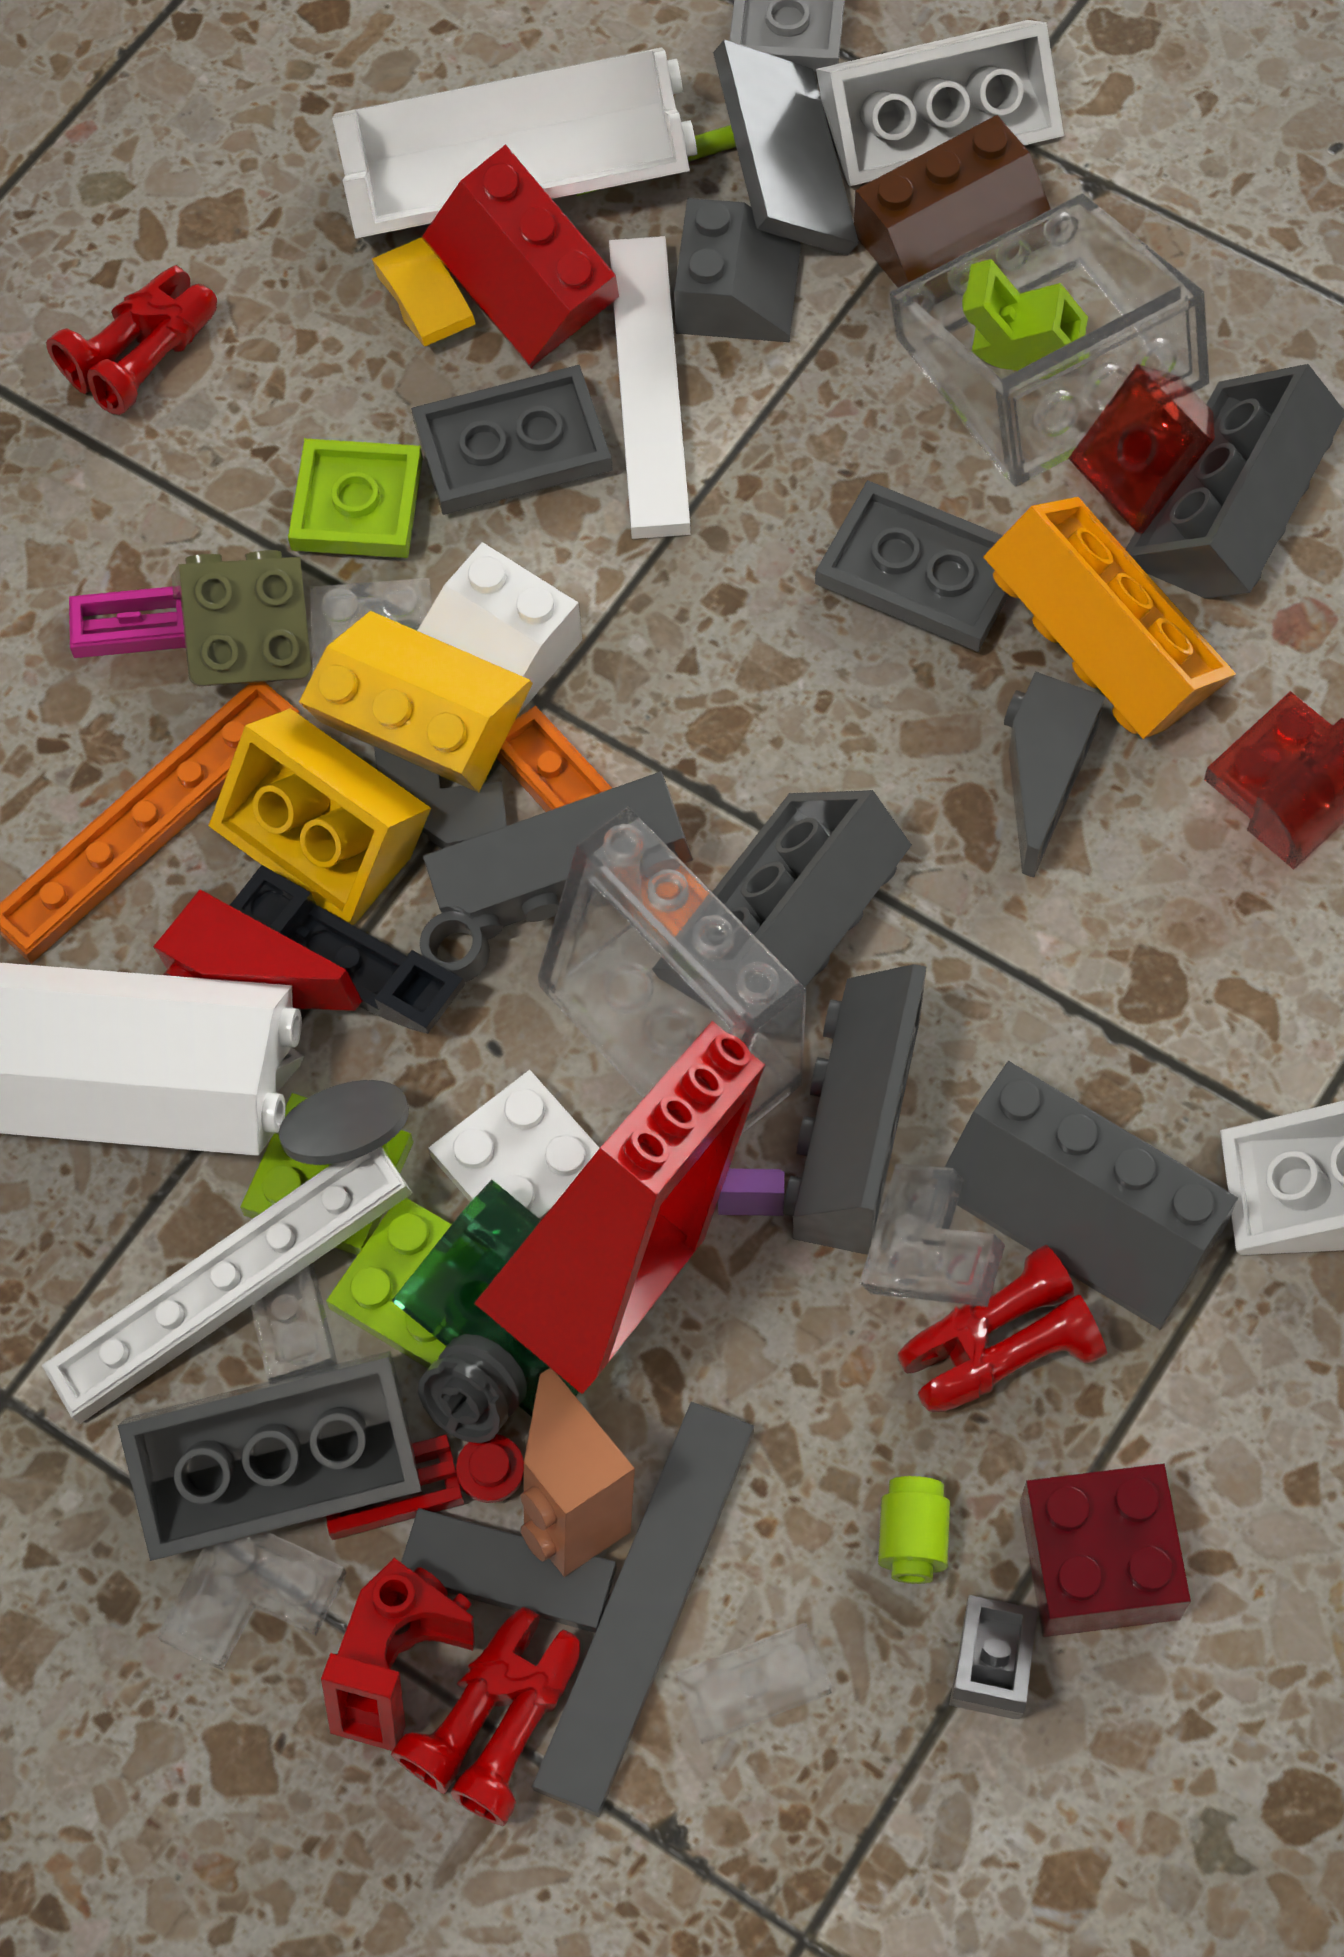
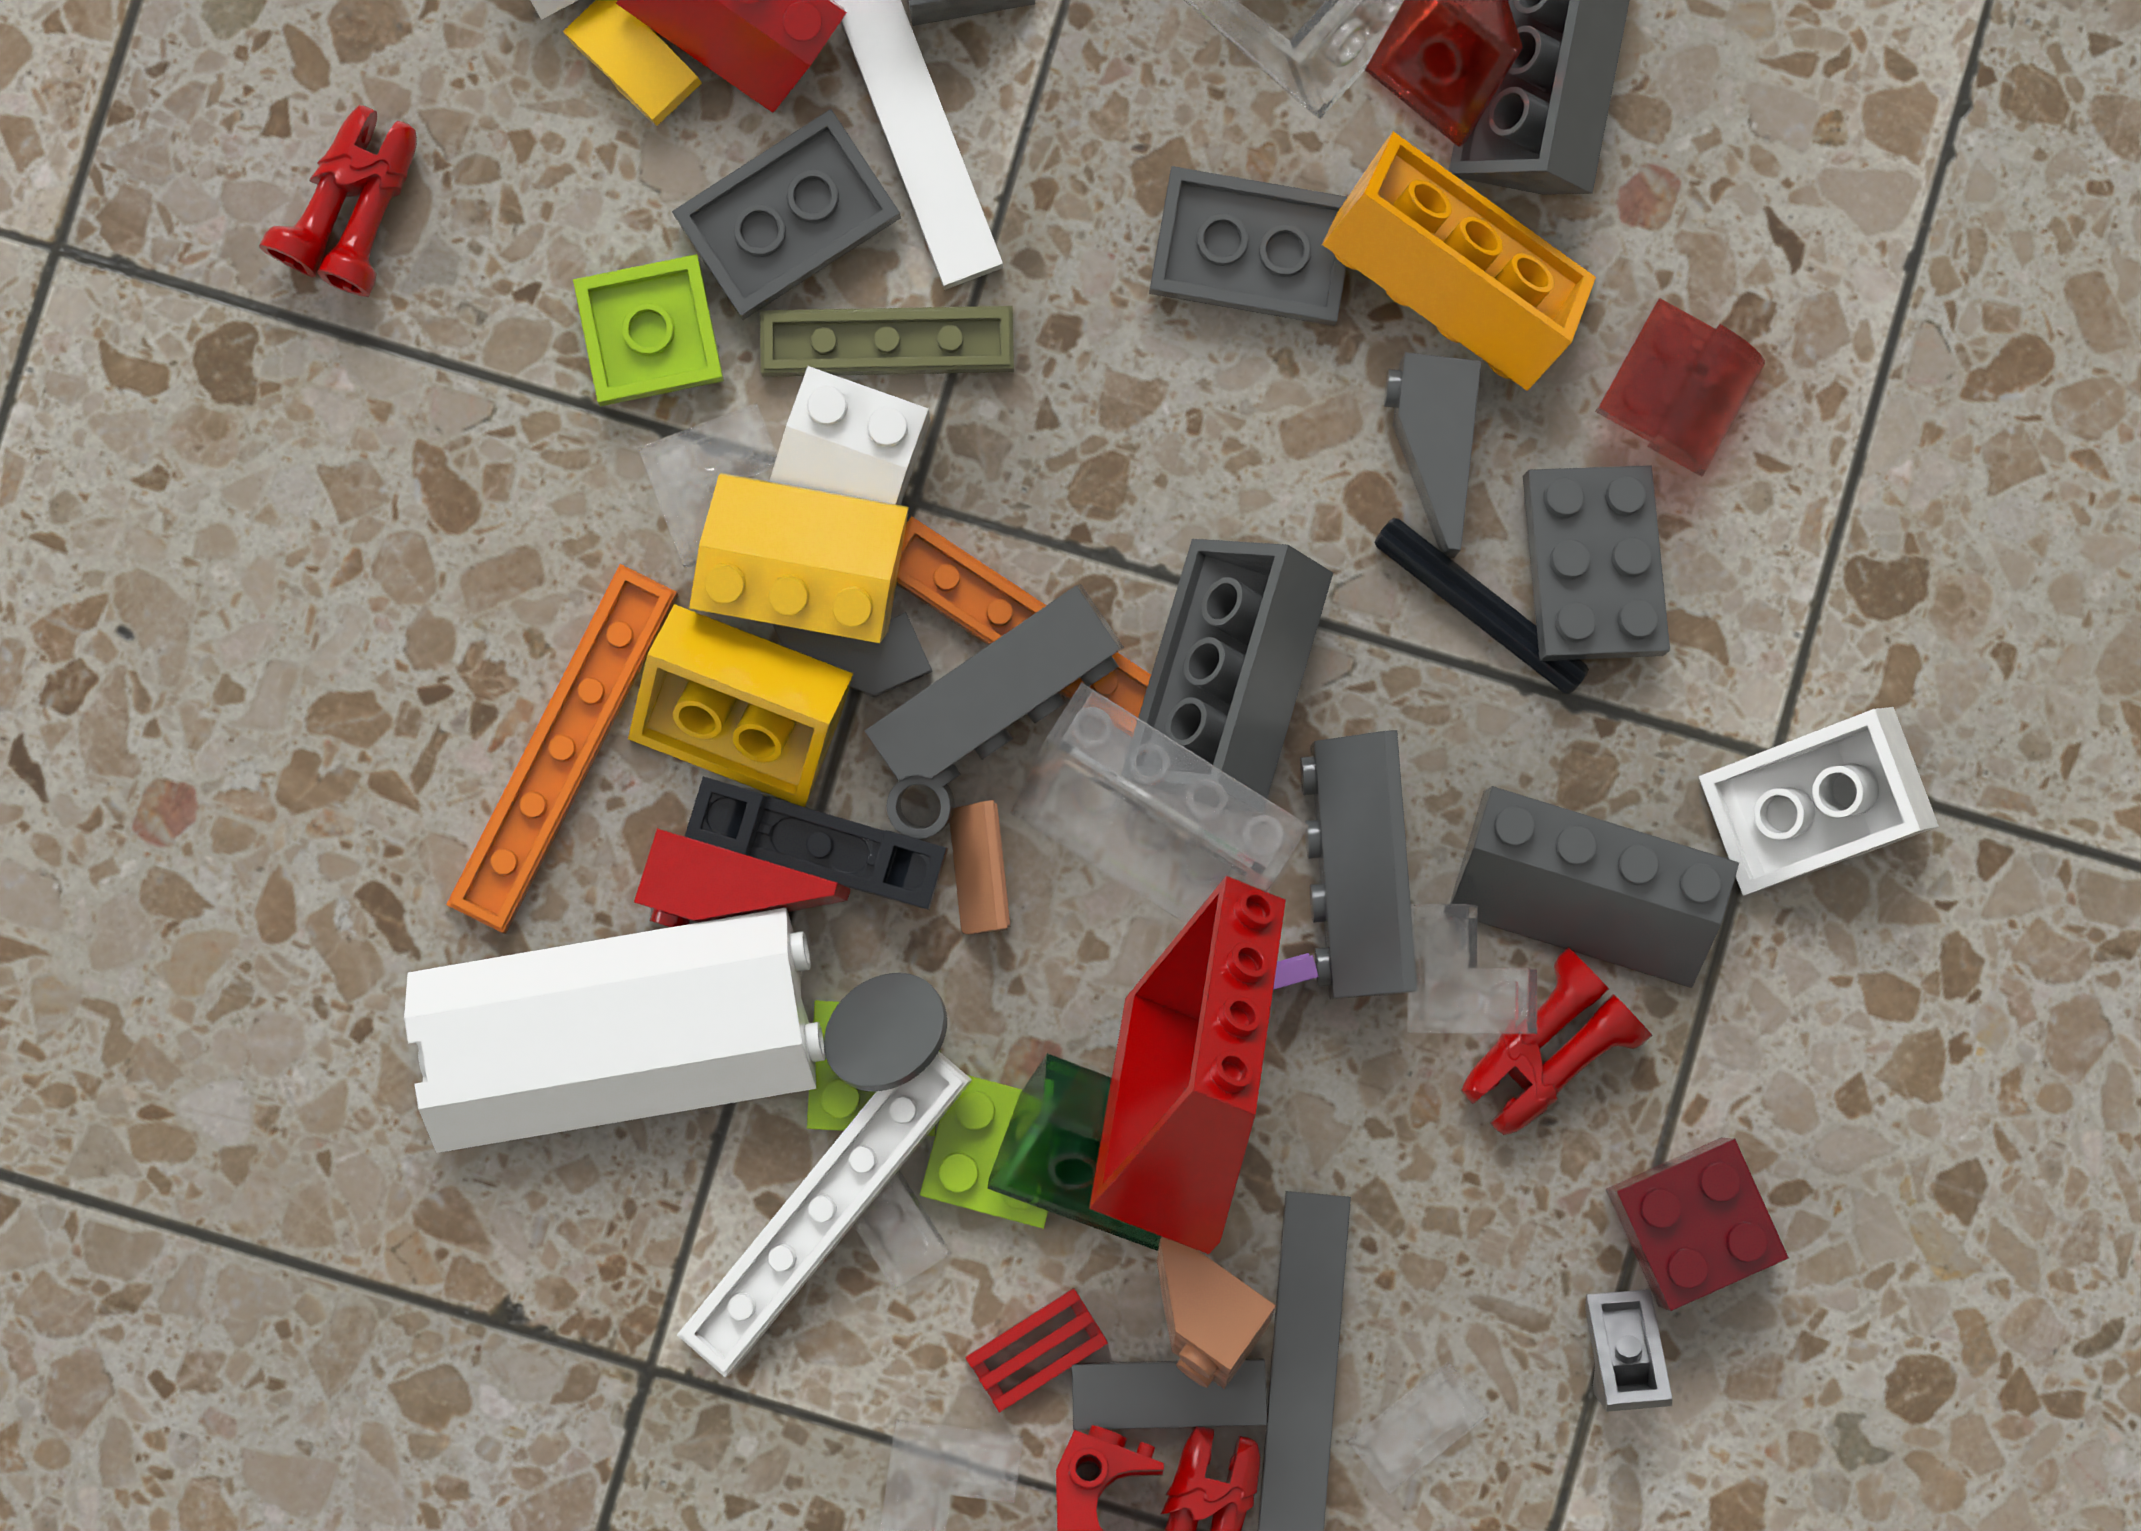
camera: 25 degrees left, 20 degrees up
(129, 630) = (474, 557): dark pink tile -> none
(243, 618) = (587, 510): olive bracket -> none
(270, 1455) = (924, 1360): dark grey slope -> none
(472, 1388) = (1087, 1248): dark grey wheel -> none
(490, 1469) = (1123, 1307): red plate -> none
(494, 1021) = (979, 868): none -> nougat slope
(520, 1143) = (1051, 995): white plate -> none
(575, 563) = (887, 341): none -> olive tile
(914, 1529) = (1523, 1252): lime brick -> none
(1048, 921) = (1475, 602): none -> black axle
(1168, 907) = (1595, 563): none -> dark grey plate

